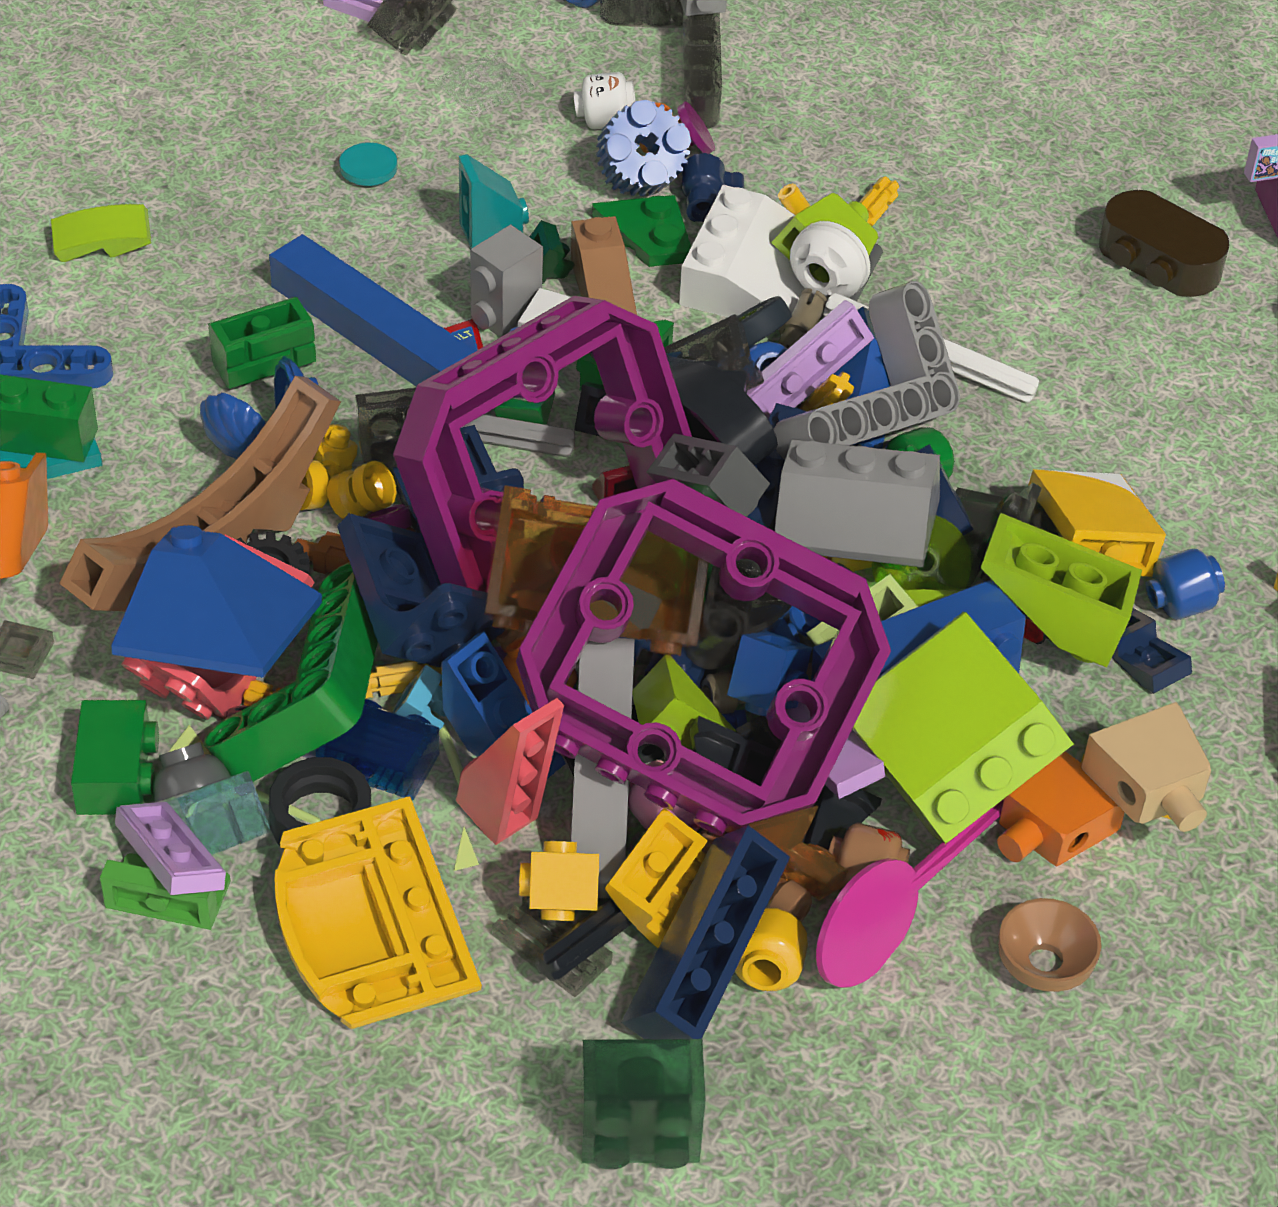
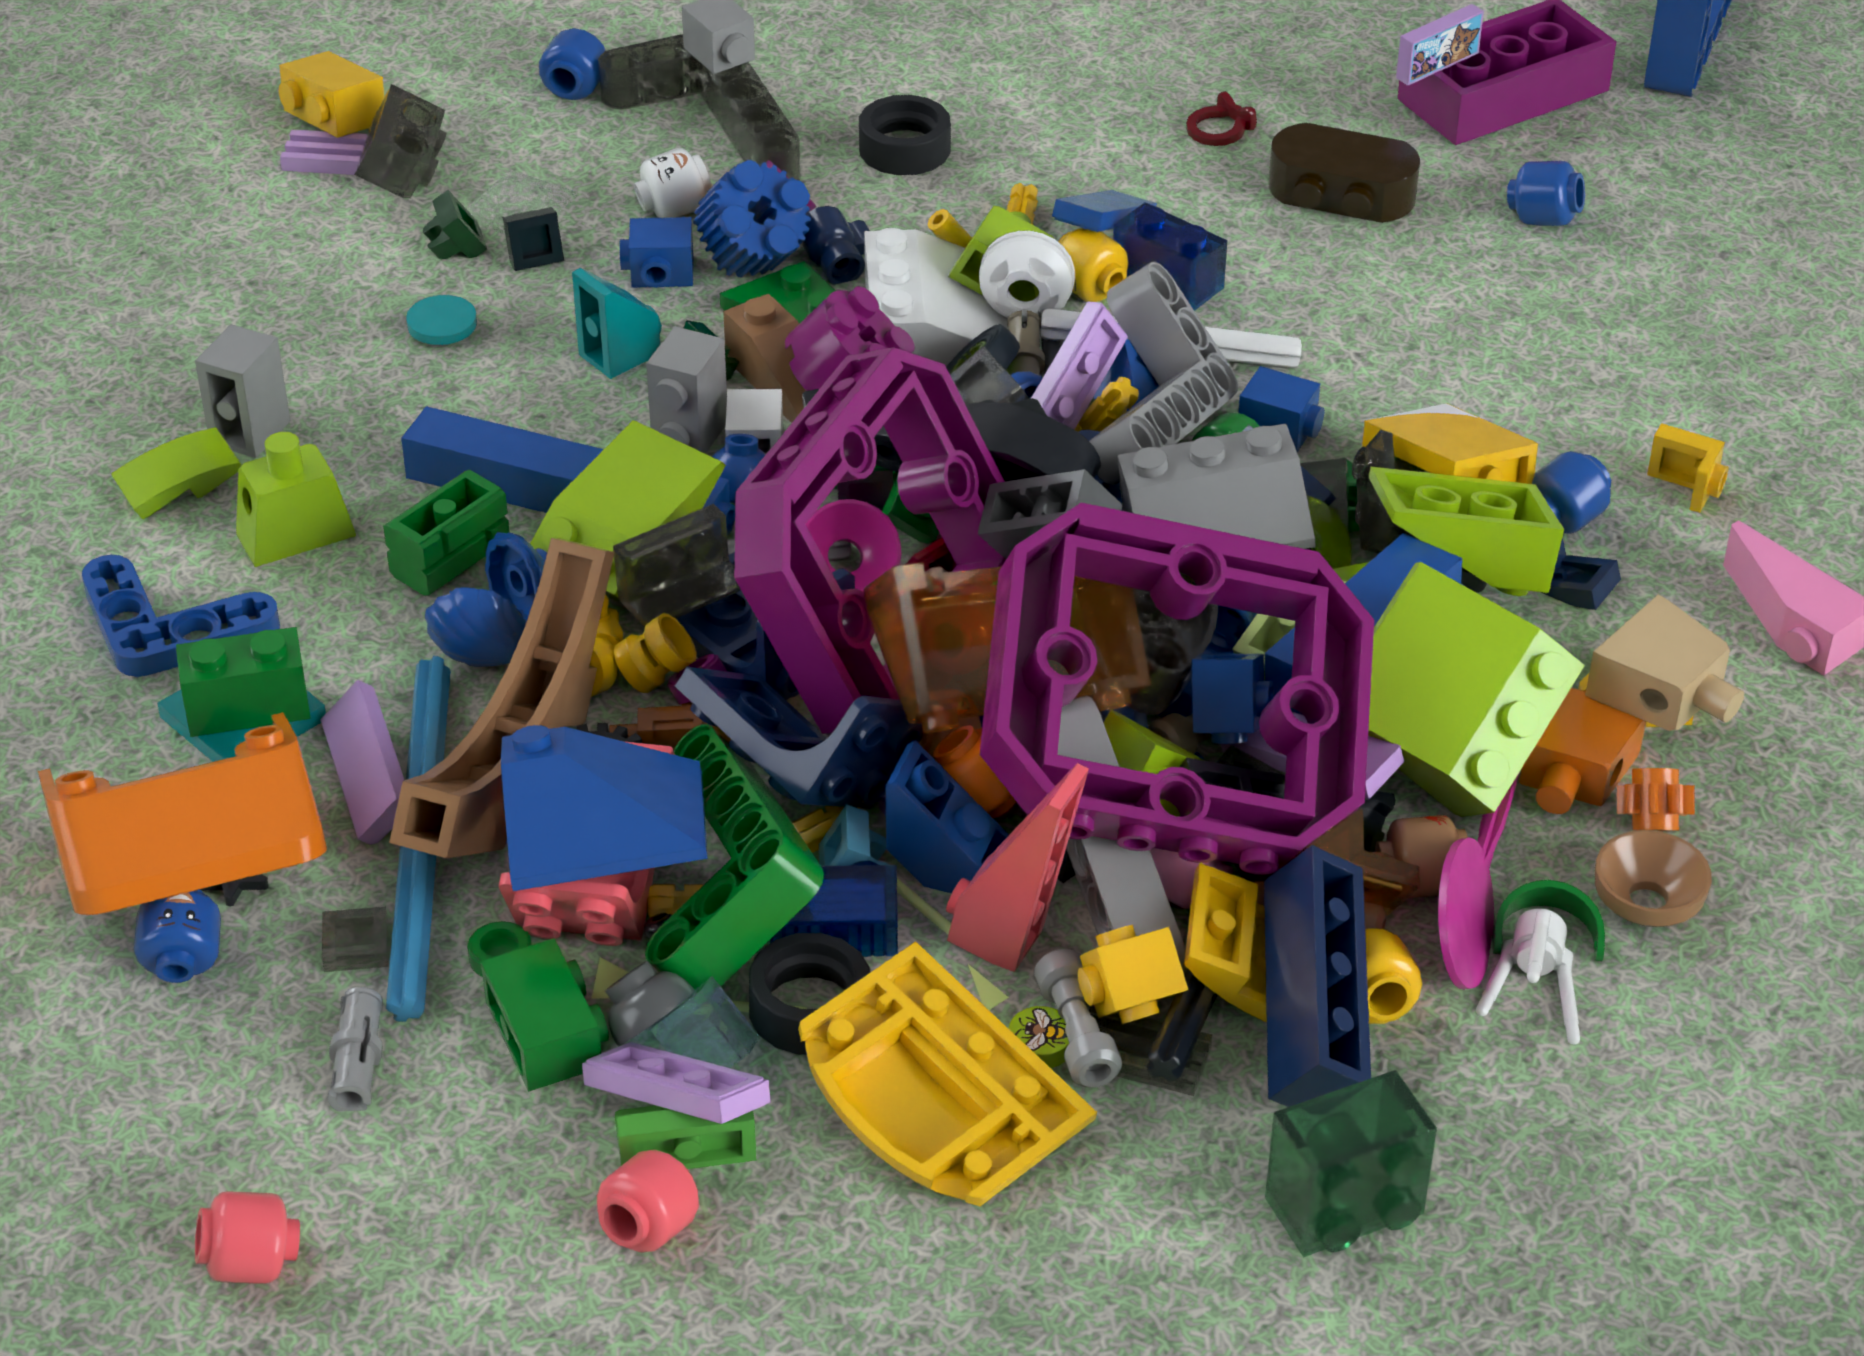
camera: 20 degrees left, 5 degrees down
(84, 621) = (415, 868): none -> dark azure axle
(101, 935) = (647, 1201): none -> coral head
(106, 495) = (364, 761): none -> lavender tile
(117, 686) = (495, 940): none -> green tile
(162, 282) = (289, 502): none -> lime torso
(175, 180) = (243, 388): none -> light grey brick
(394, 354) = (629, 490): none -> lime slope
(419, 91) = (453, 229): none -> dark green tile
(472, 116) = (533, 238): none -> black tile
(479, 906) = (1042, 1032): none -> tile
(501, 936) = (1090, 1053): none -> light grey piece
(539, 434) = (864, 528): none -> dark pink piece
(563, 155) = (659, 252): none -> blue brick
(652, 278) = (838, 328): none -> magenta brick
(818, 128) = (904, 155): none -> black tyre
(900, 259) = (1097, 263): none -> yellow head
(918, 973) = (1537, 950): none -> white plant
(934, 220) = (1096, 210): none -> blue tile
(944, 924) = (1556, 895): none -> green helmet
(969, 276) = (1185, 250): none -> clear blue brick
(983, 436) = (1283, 399): none -> blue brick
(1094, 877) = (1655, 799): none -> orange gear
(1111, 172) = (1244, 118): none -> dark red piece

